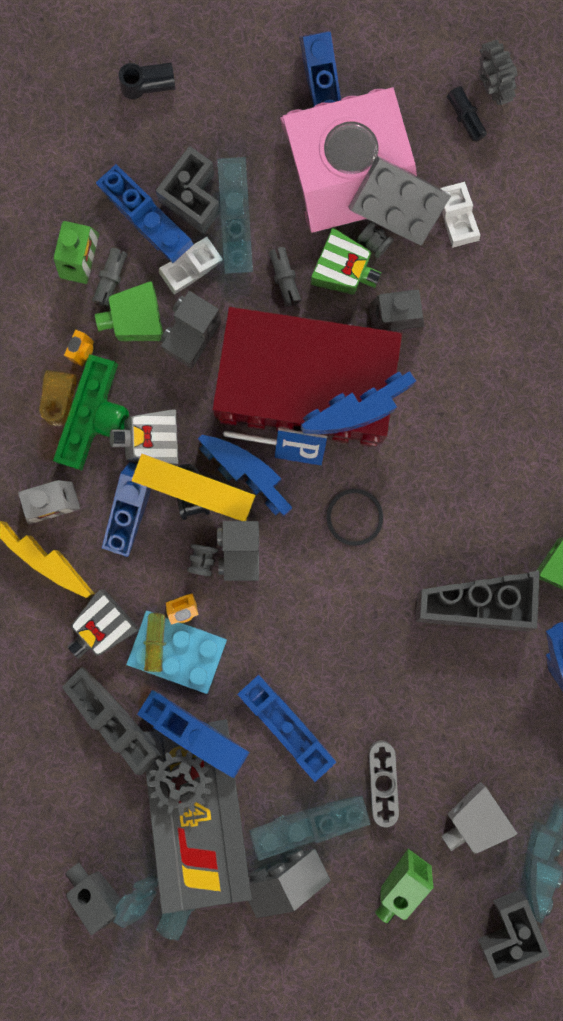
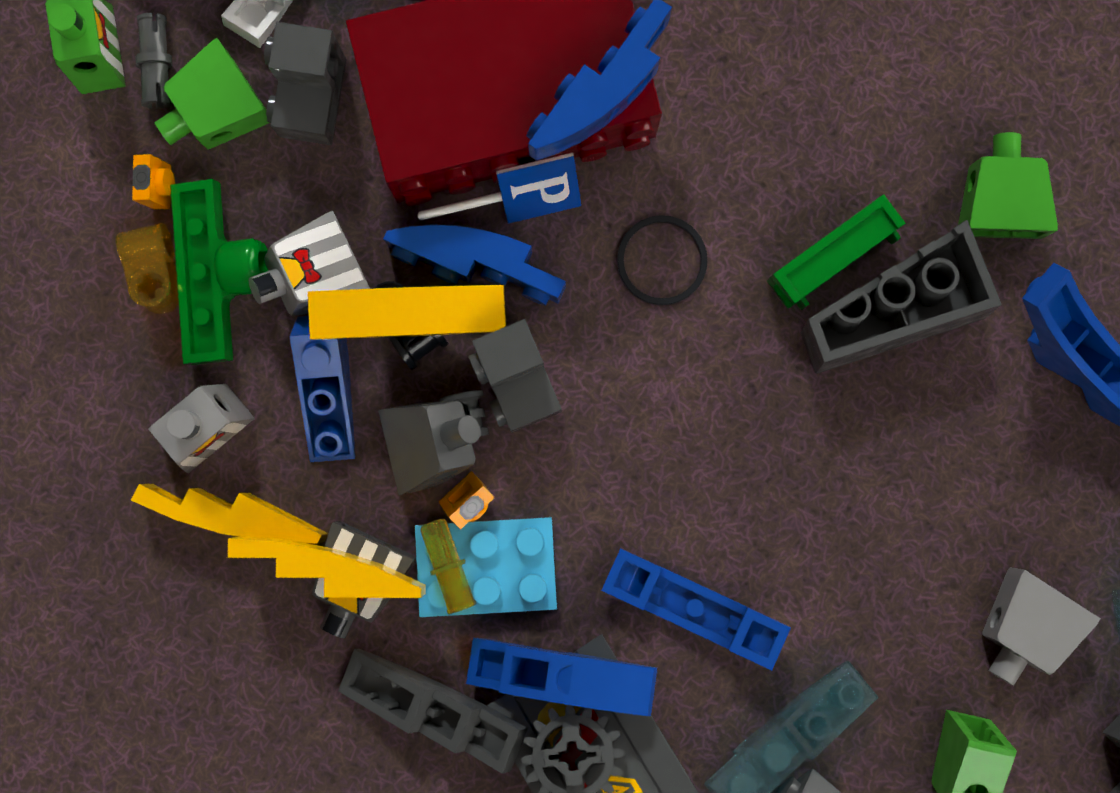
camera: 20 degrees left, 0 degrees up
(94, 621) = (343, 572): none -> yellow slope
(174, 566) = (428, 443): none -> dark grey torso
(392, 804) = (874, 665): light grey beam -> none
(457, 556) = (836, 252): none -> green container

